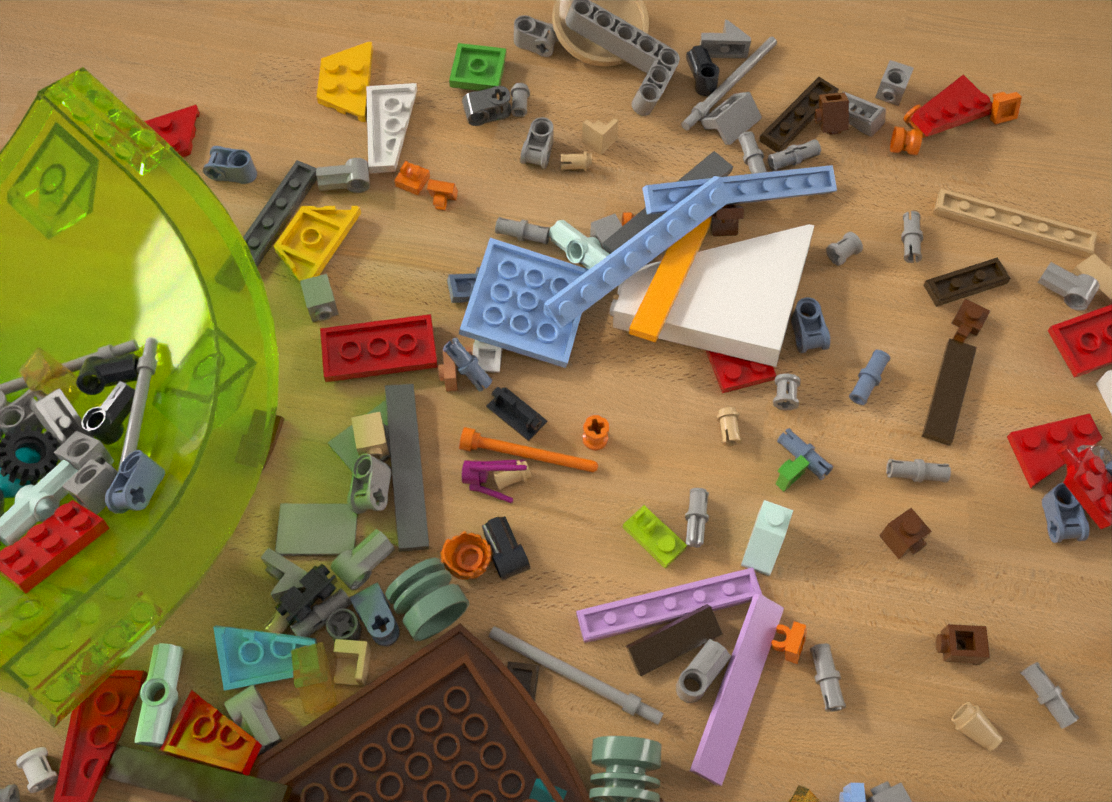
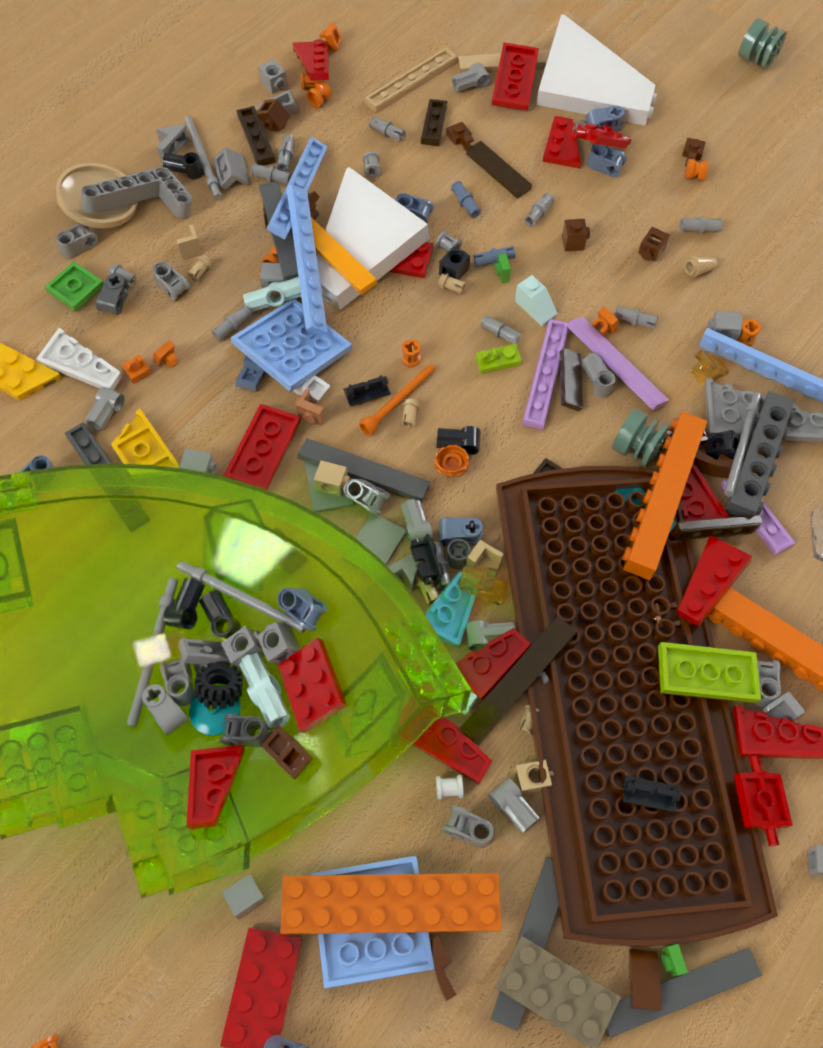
camera: 60 degrees left, 0 degrees up
(427, 599) = (471, 492): sand green wheel -> none
(467, 364) = (317, 396): sand blue pin -> none
(477, 472) = (396, 431): magenta plant -> none
(630, 703) = (595, 422): light grey bar -> none
(750, 422) = (455, 263): none -> black brick

